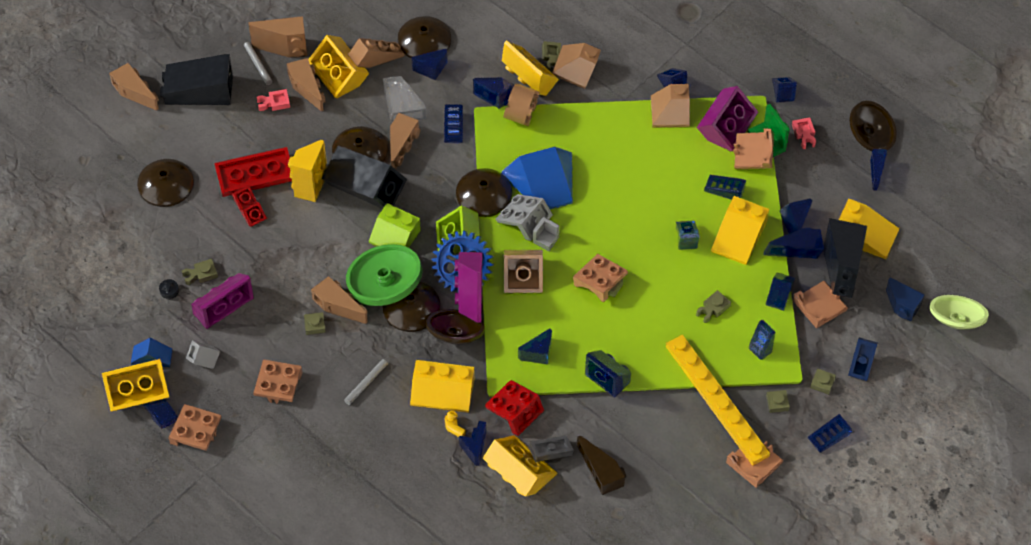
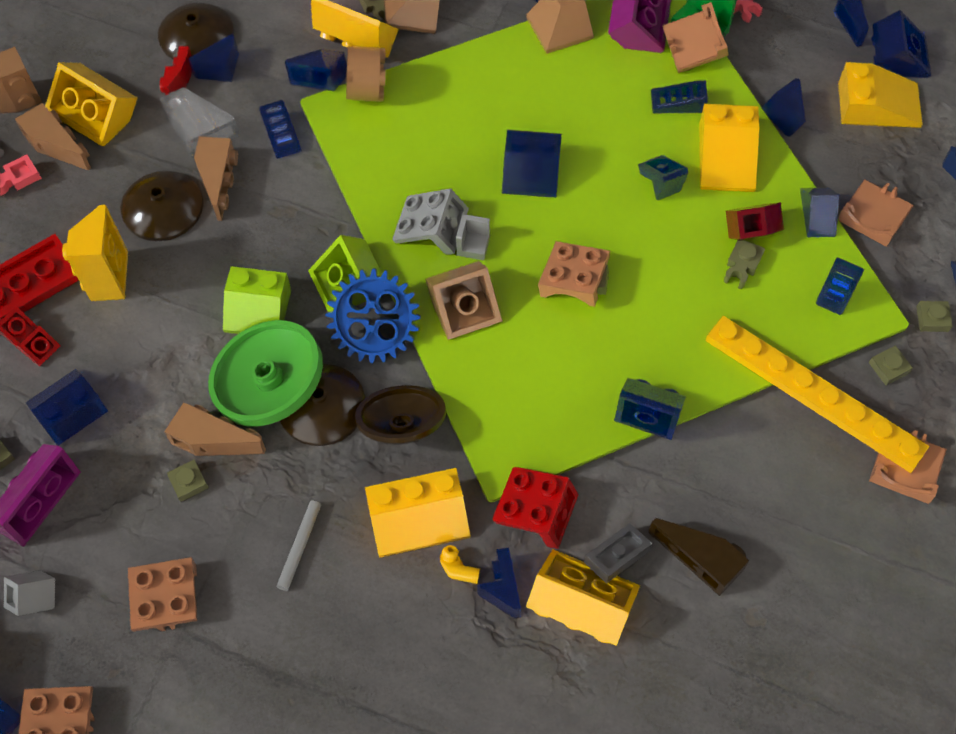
camera: 20 degrees left, 5 degrees up
(259, 256) = (67, 406): none -> clear blue slope
(364, 177) = (183, 240): black slope -> none
(371, 52) = (133, 69): medium nougat slope -> none
(402, 65) = (179, 74): none -> red slope
(469, 284) = (401, 346): magenta slope -> none
(487, 199) = (364, 218): dark brown dish -> none
(537, 349) = (535, 407): slope -> none
(543, 175) = (433, 159): blue wedge -> none
(605, 199) = (531, 163): none -> clear blue slope
(733, 282) = (754, 221): none -> dark red slope
(800, 243) = (815, 140): clear blue slope -> none
(843, 254) = (885, 137): black slope -> none
(899, 200) = (901, 46): none -> clear blue slope

